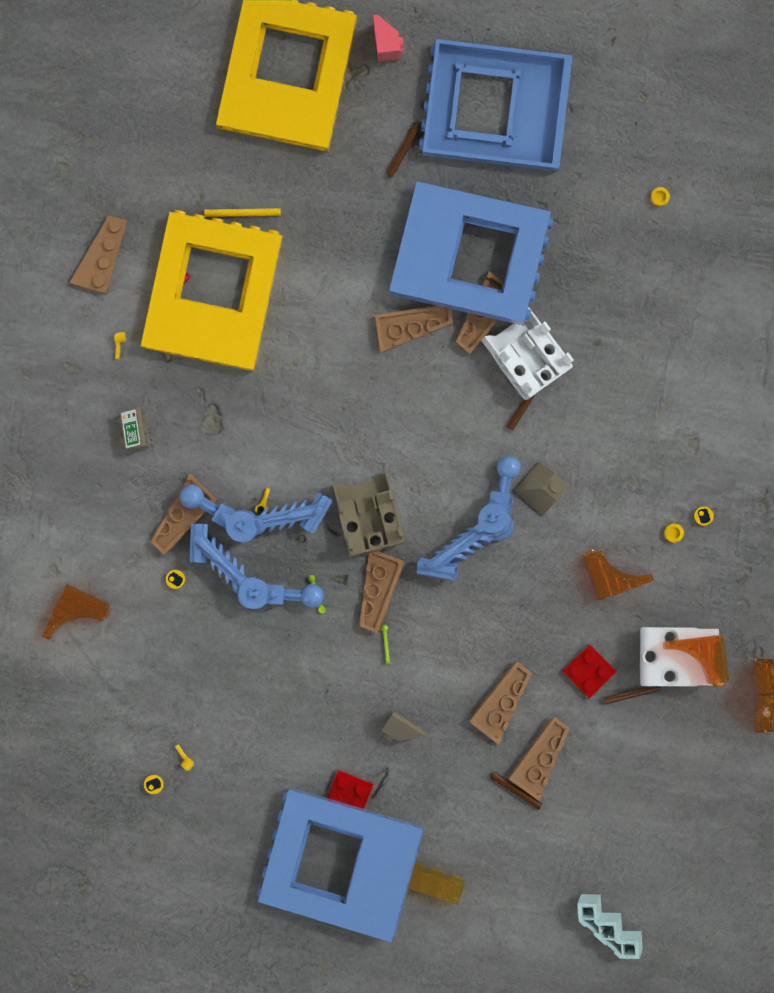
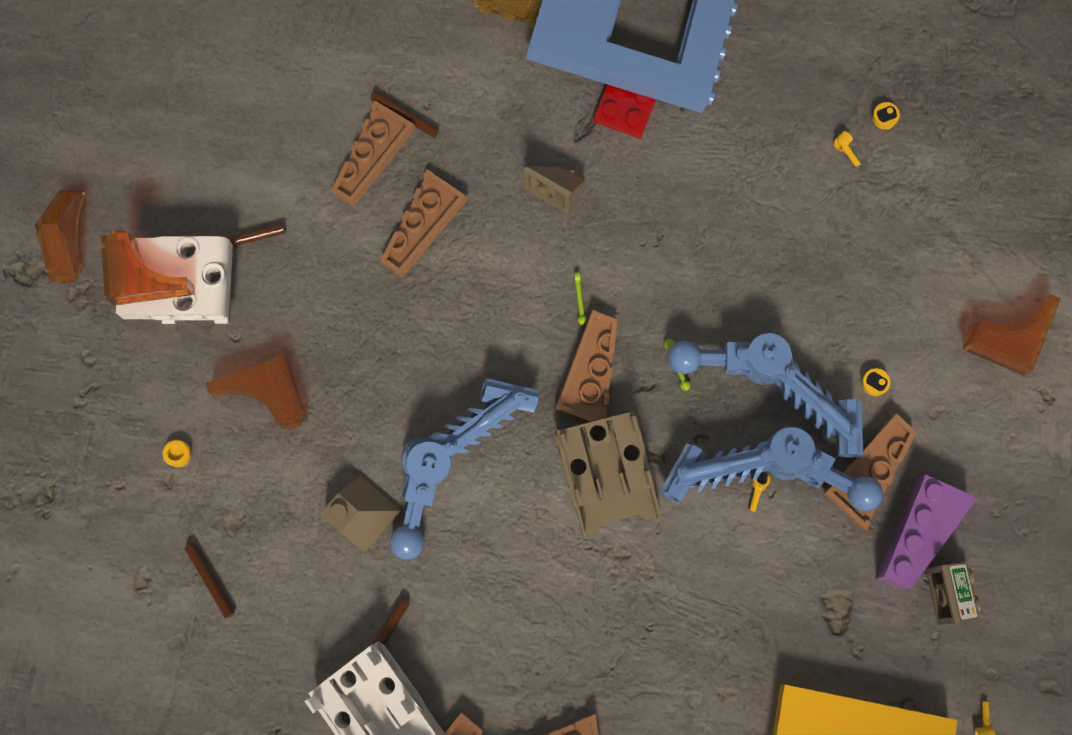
camera: 175 degrees left, 10 degrees down
(150, 474) = (924, 527): none -> medium lavender wedge
(589, 671) = (302, 266): red plate -> none
(646, 444) = (209, 580): none -> reddish brown bar
(703, 516) = (133, 477): yellow tile -> none

